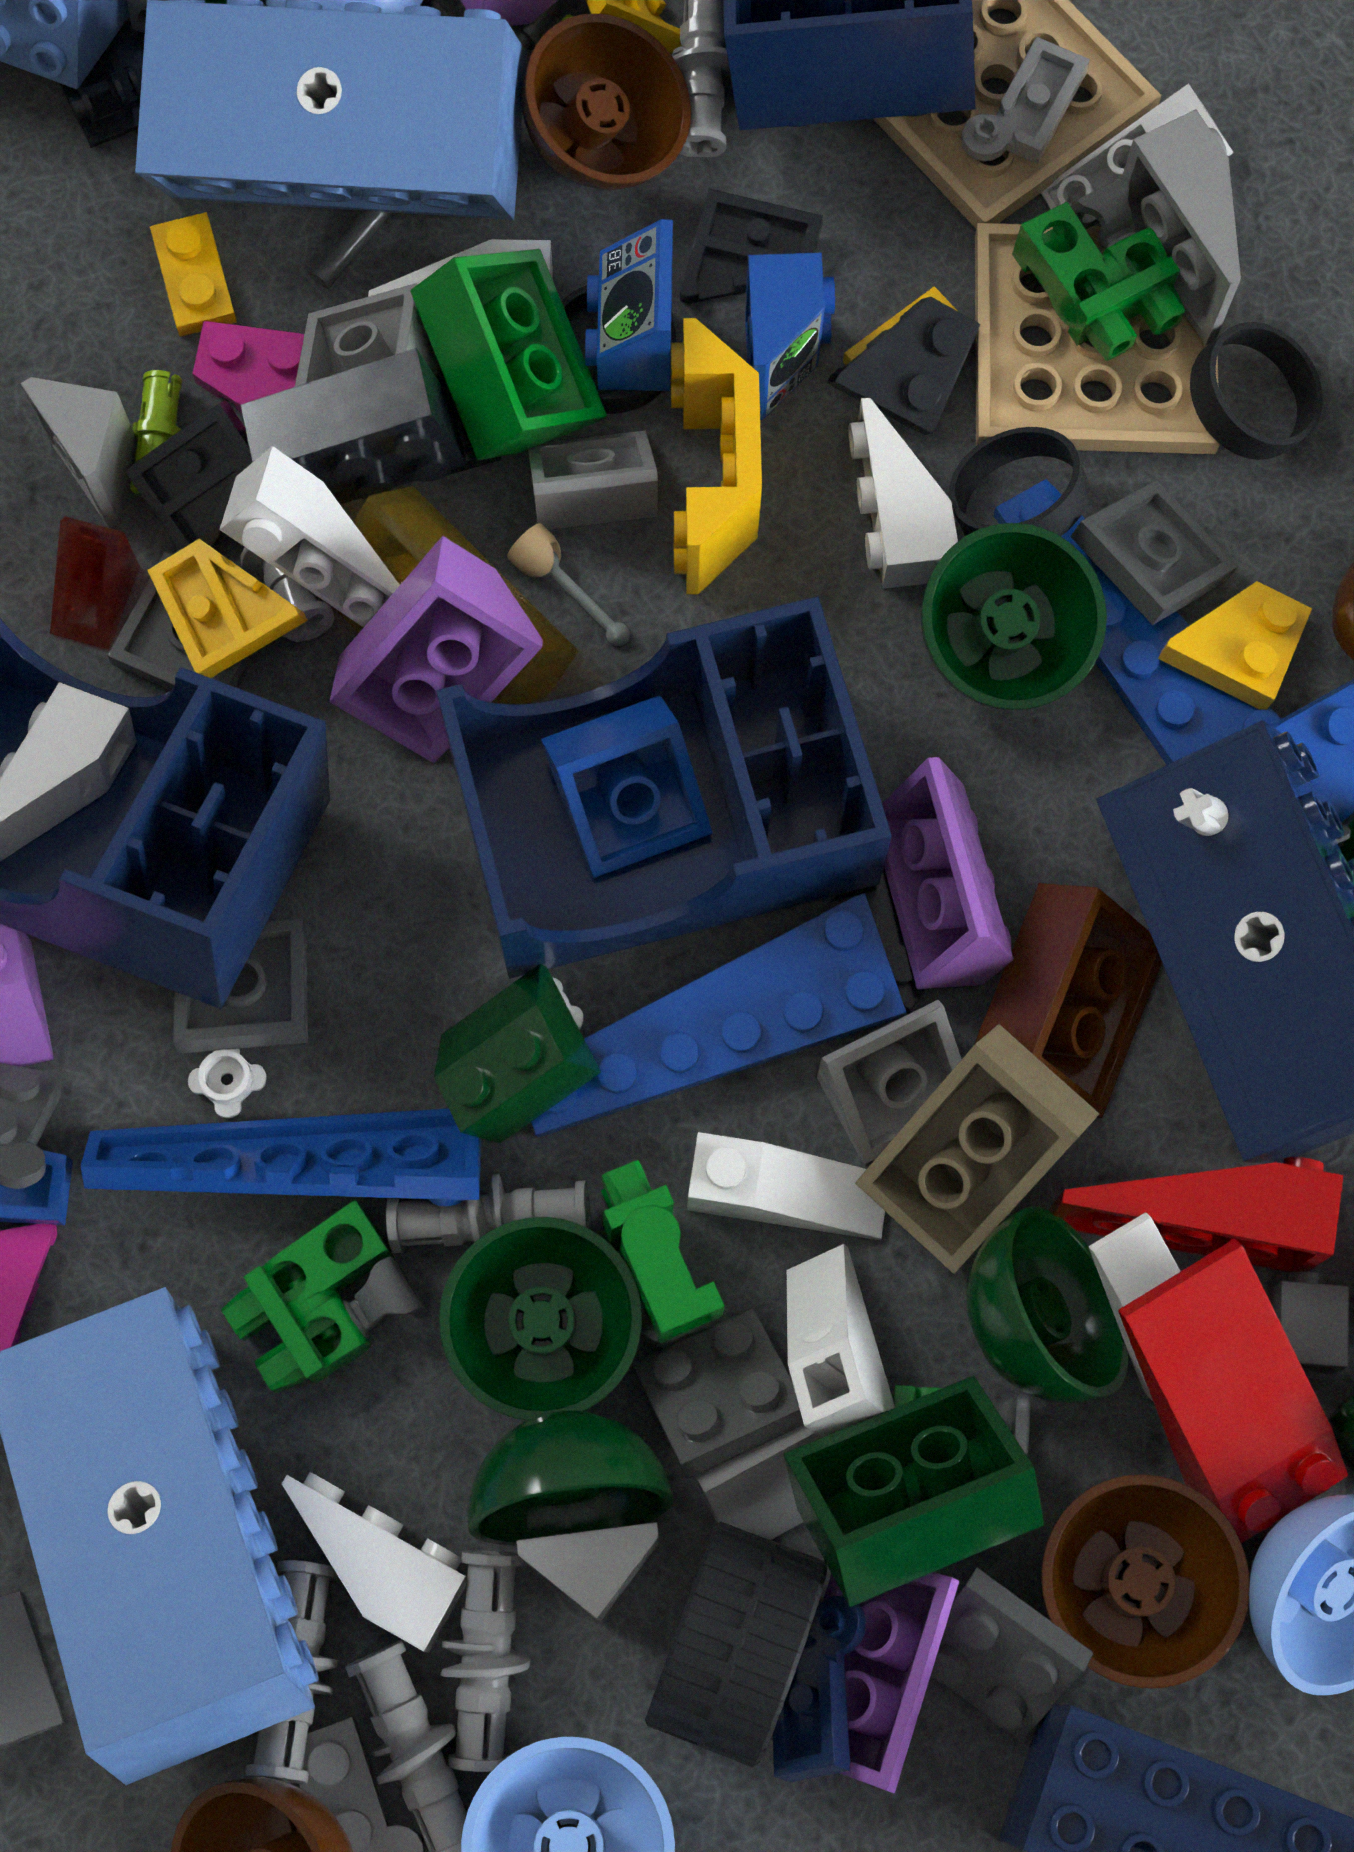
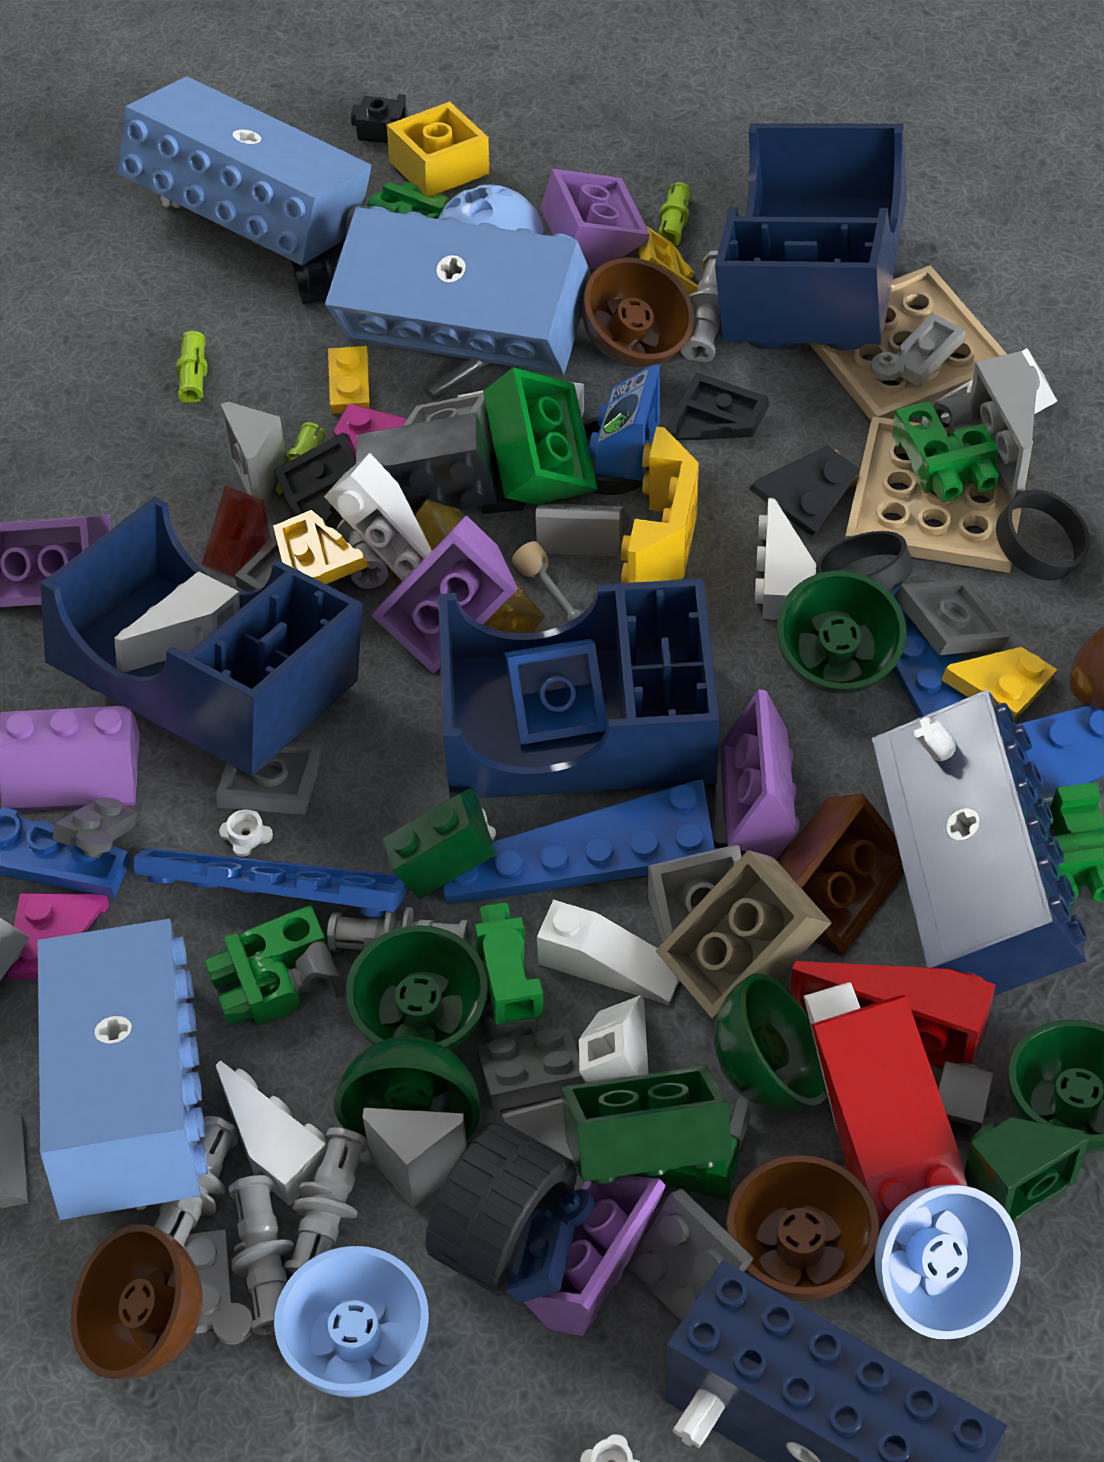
camera: 15 degrees right, 20 degrees down
(786, 321) = (727, 450): blue slope -> none

